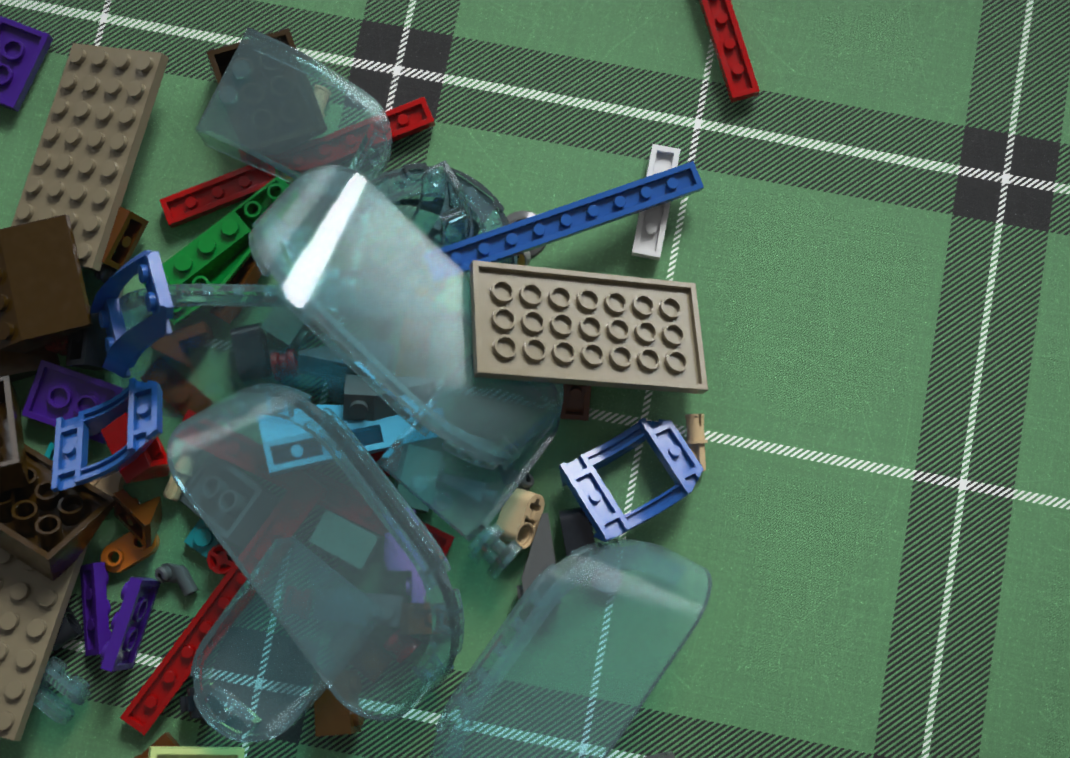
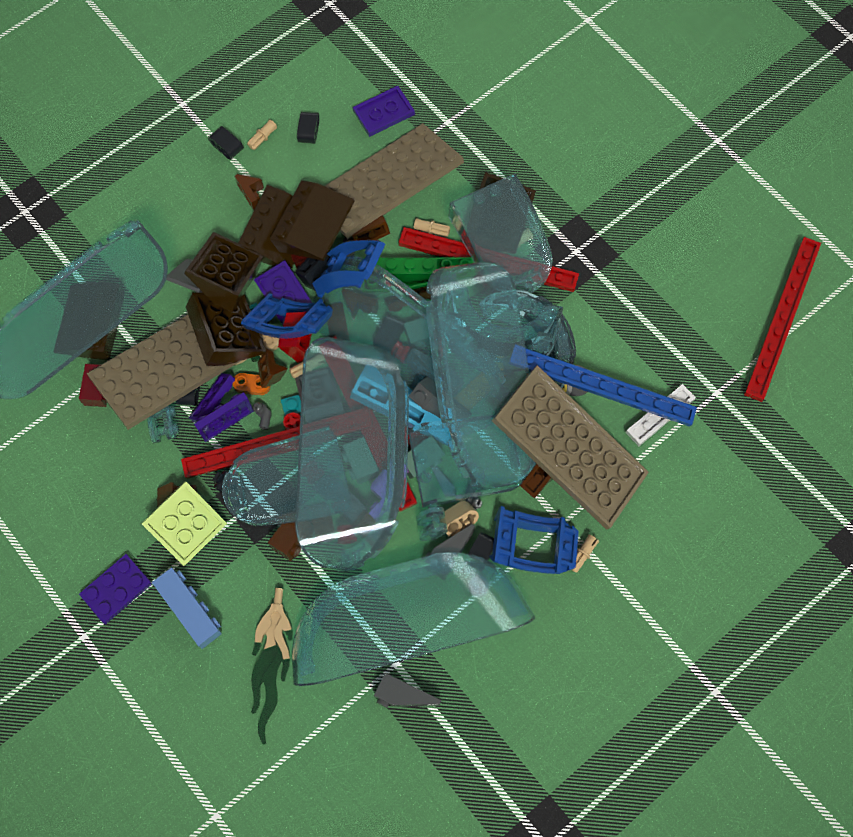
camera: 35 degrees right, 10 degrees down
(195, 173) = (431, 227): none -> tan axle

